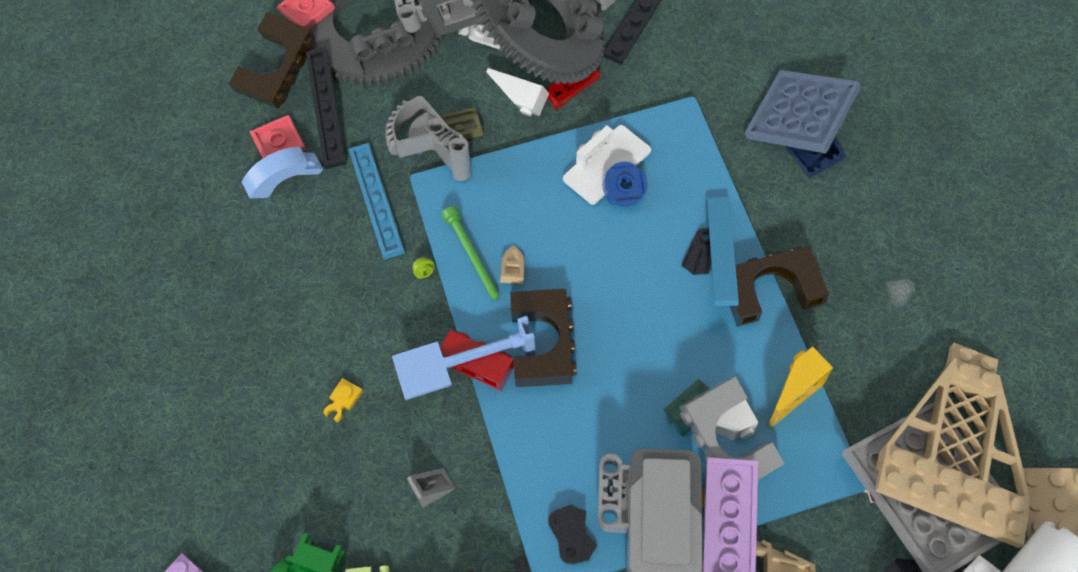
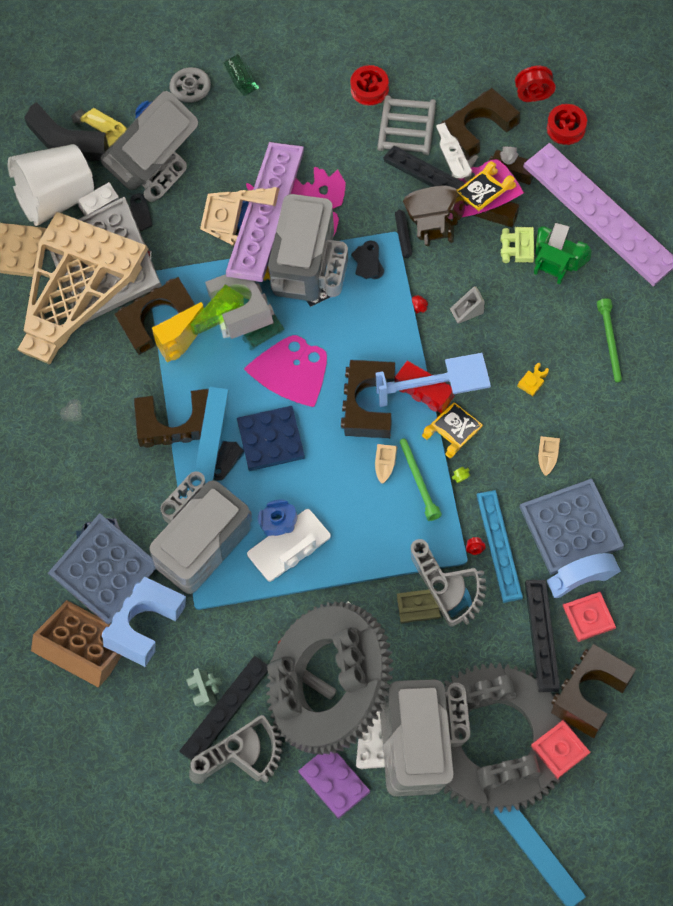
camera: 170 degrees left, 0 degrees up
(249, 509) = (604, 307): none -> bright green piece
(295, 227) = (571, 525): none -> sand blue plate
(322, 306) = (548, 453): none -> tan plate
(401, 191) = (475, 546): none -> red plate
(435, 321) = (455, 426): none -> flag
(496, 490) = (419, 304): none -> red piece
(653, 281) = (270, 438): none -> dark blue plate
(661, 366) = (279, 374): none -> dark pink piece
(663, 24) = (207, 685): none -> sand green hips
(707, 142) = (198, 532): none -> light grey piece
(746, 96) = (145, 597): none -> light blue arch
(749, 416) = (211, 316): none -> clear neon green slope
(801, 45) = (75, 643): none -> medium nougat slope
(821, 444) = (133, 316): none -> dark brown arch

